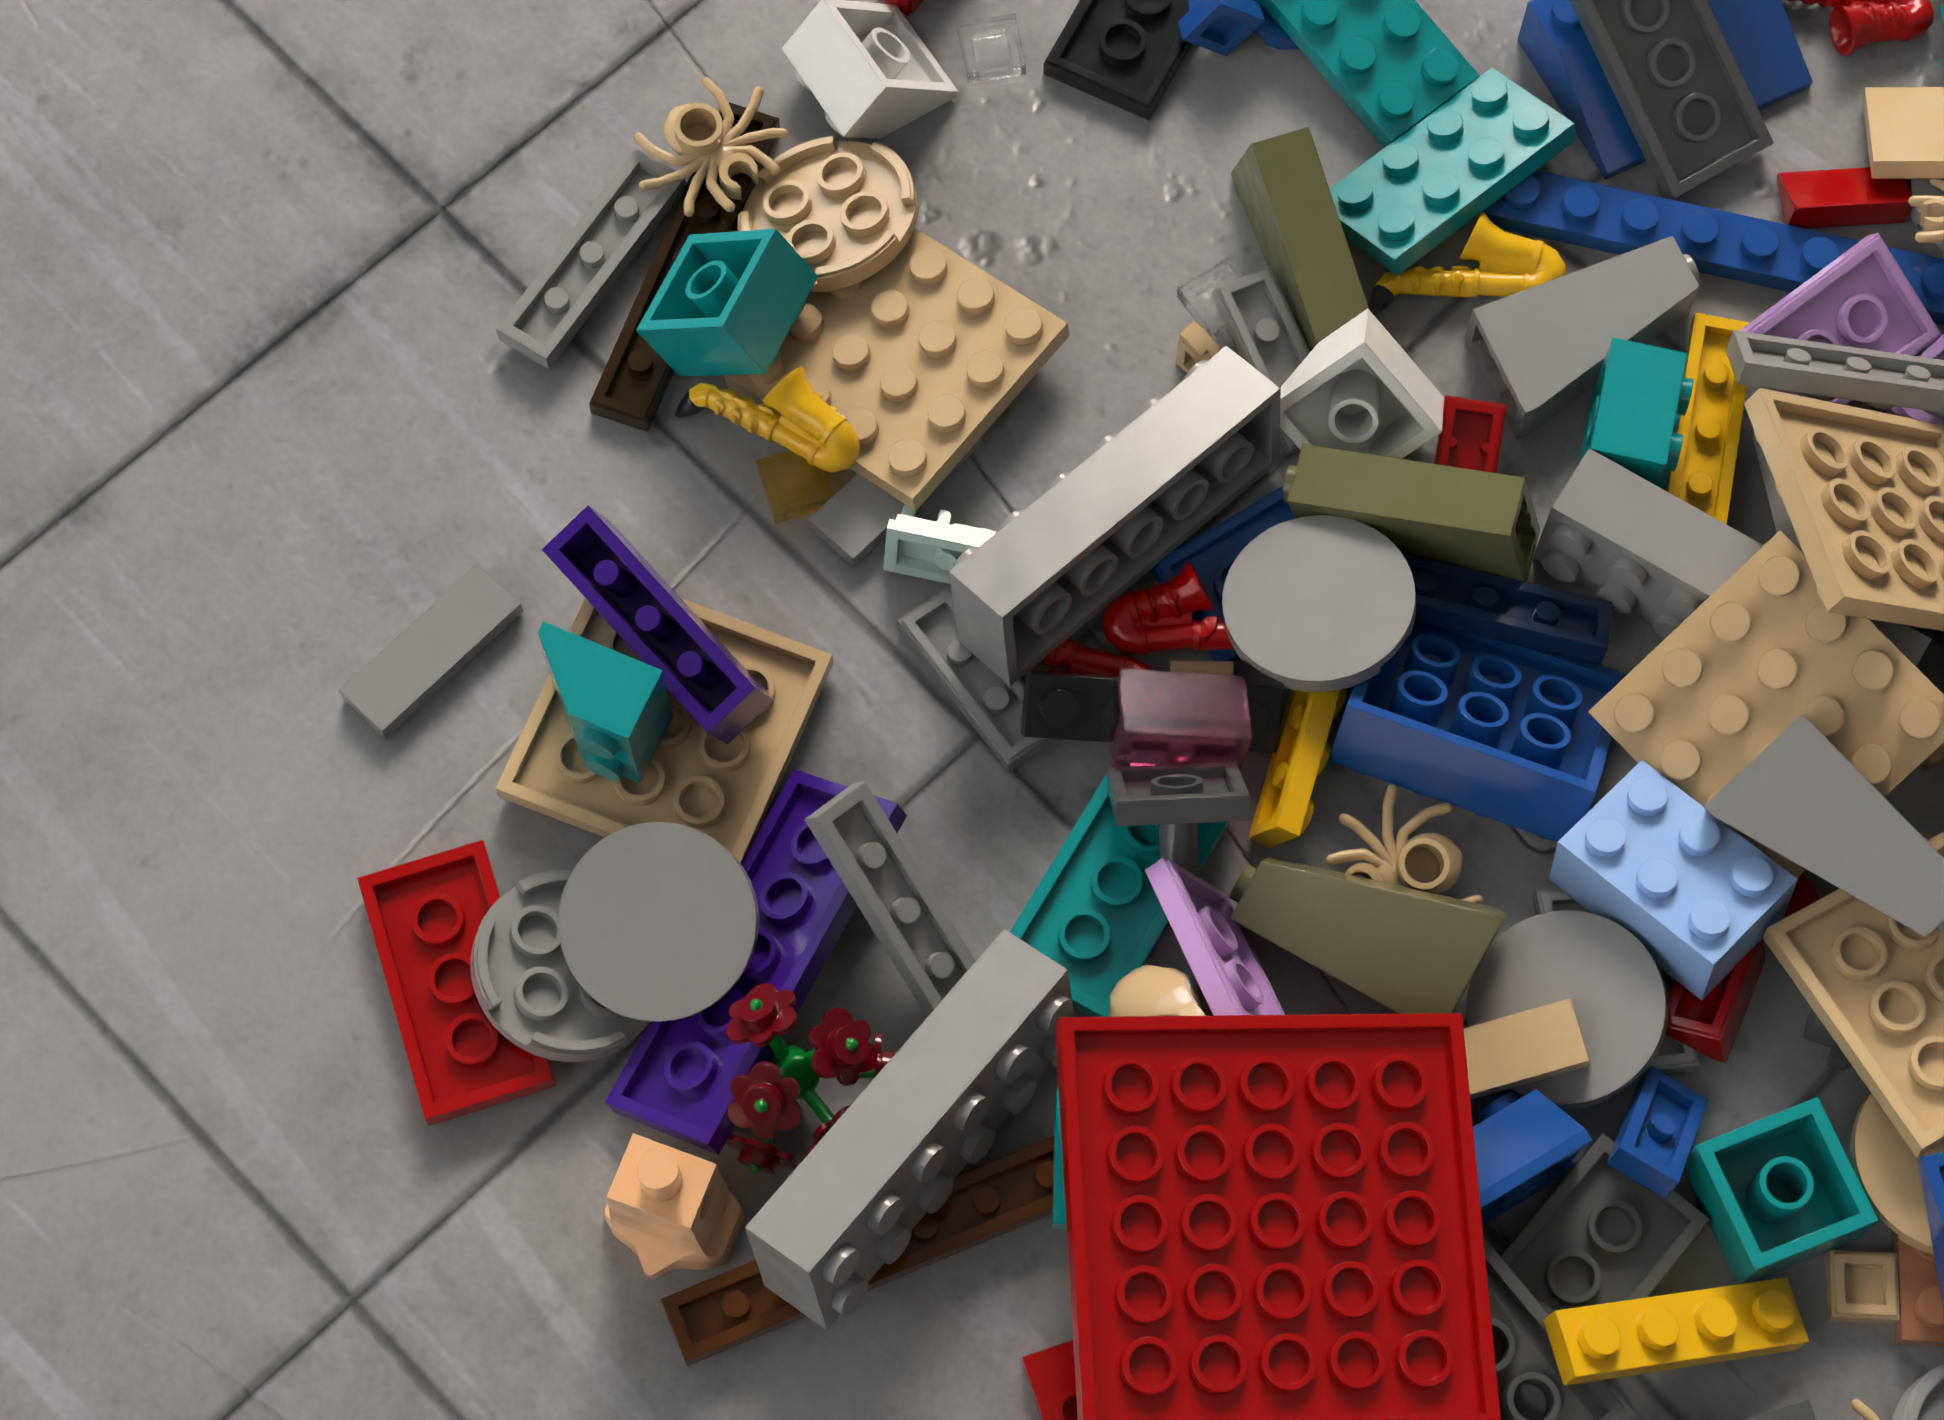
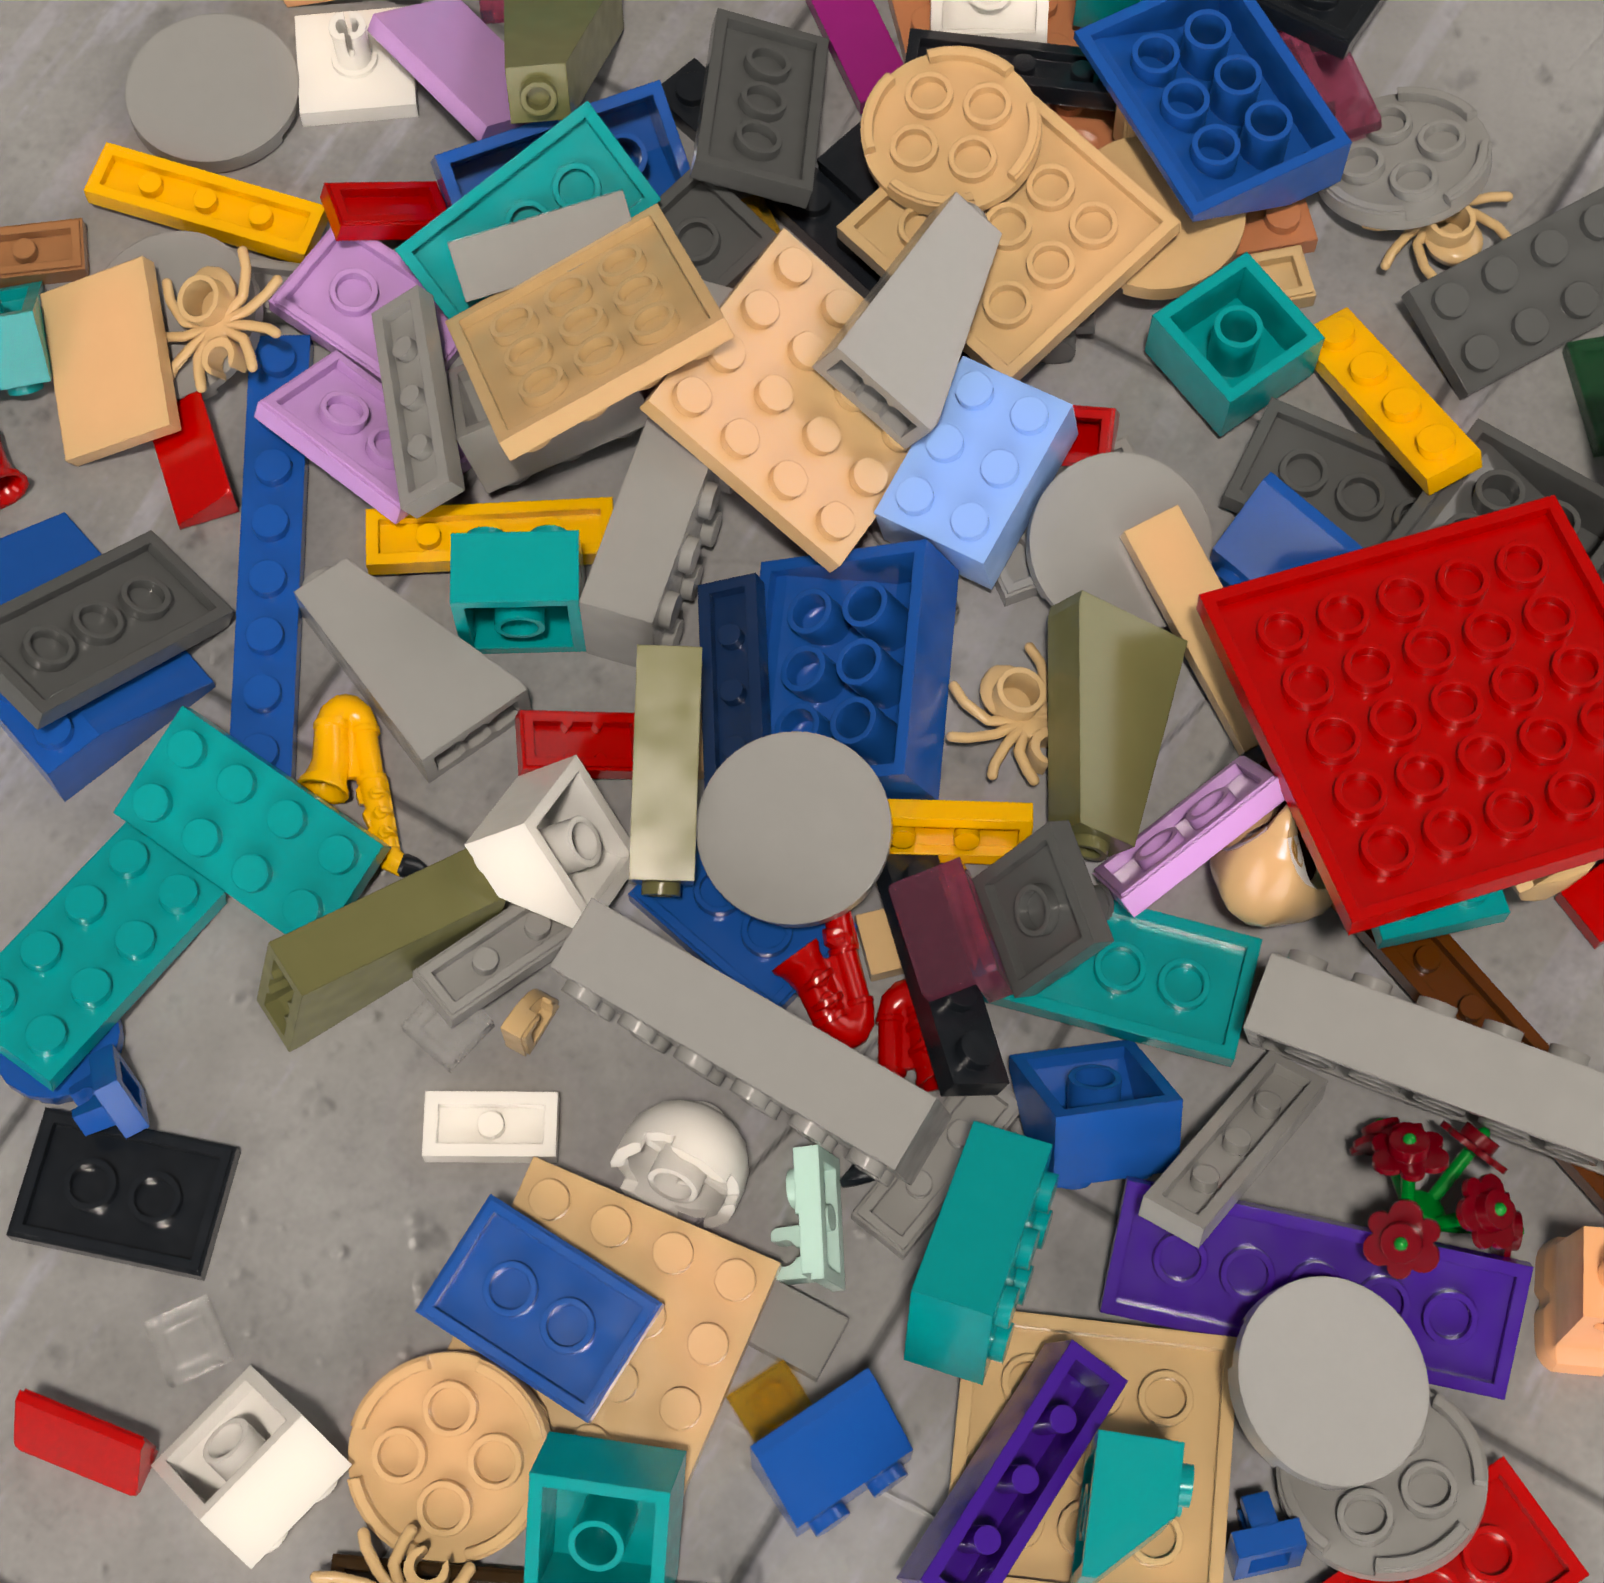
camera: 105 degrees left, 0 degrees up
(550, 845) = (1263, 1541): none -> blue tile
(732, 502) = (832, 1455): none -> blue slope
(789, 416) = (718, 1419): yellow piece -> none
(866, 651) = (981, 1254): none -> teal brick
(928, 297) = (540, 1308): none -> blue tile
(979, 810) = (1100, 1111): none -> blue slope
(1033, 449) = (684, 1161): none -> white cylinder
(1112, 310) = (490, 1126): none -> white plate
(1657, 1132) = (1216, 445): blue plate -> none

